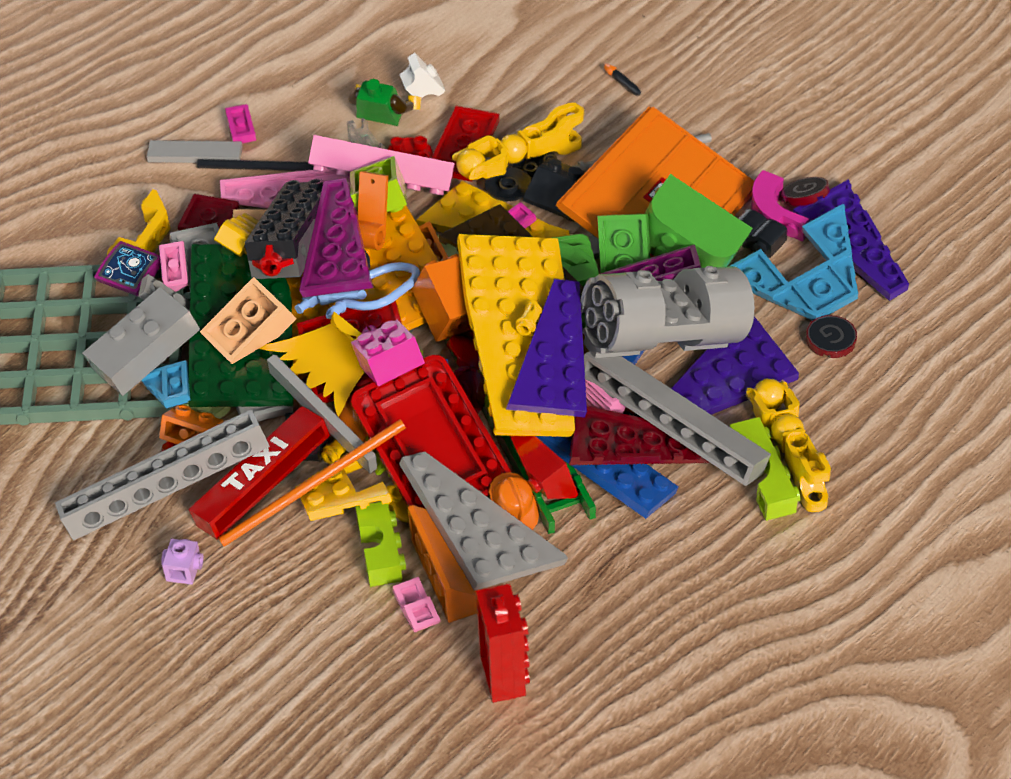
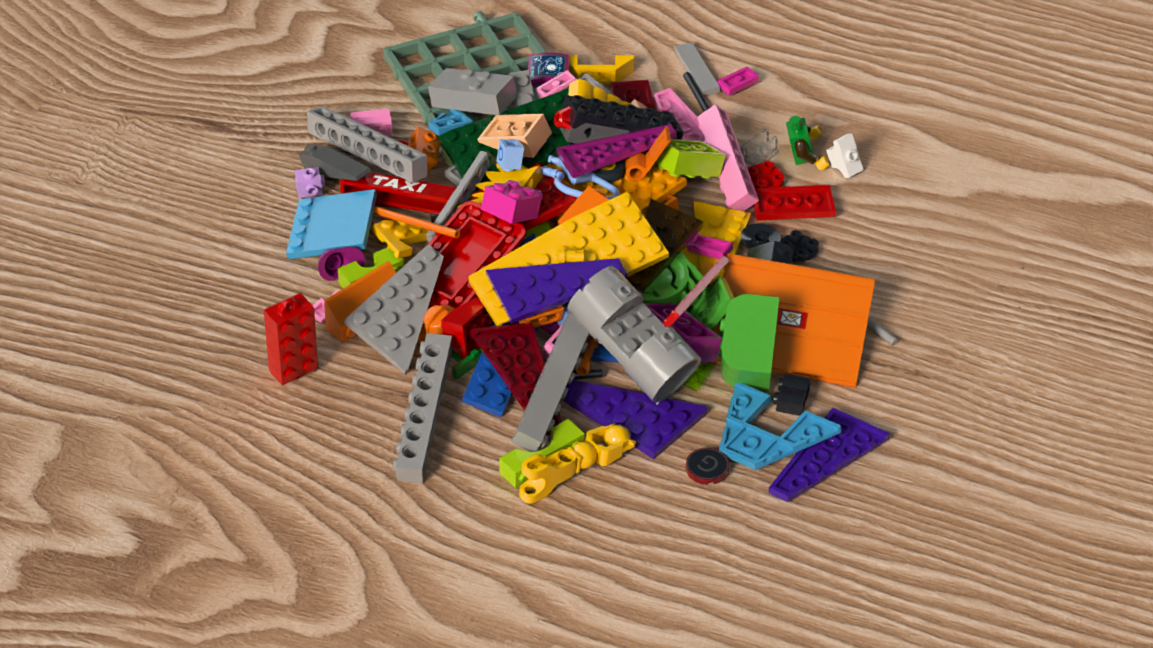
camera: 65 degrees right, 5 degrees down
(106, 461) = (375, 119): none -> bright pink brick
(174, 519) = (332, 162): none -> dark grey wedge
(275, 558) = (331, 223): none -> dark azure plate
(292, 333) = (510, 155): none -> light blue brick
(348, 570) = (336, 258): none -> magenta piece
(543, 137) = (820, 240): yellow piece -> none
(620, 240) = (698, 288): none -> tile
(622, 79) = (930, 273): black piece -> none
(665, 553) = (423, 408): none -> light grey brick
(765, 195) = (831, 389): dark pink arch -> none
(805, 191) = (860, 410): tile -> none

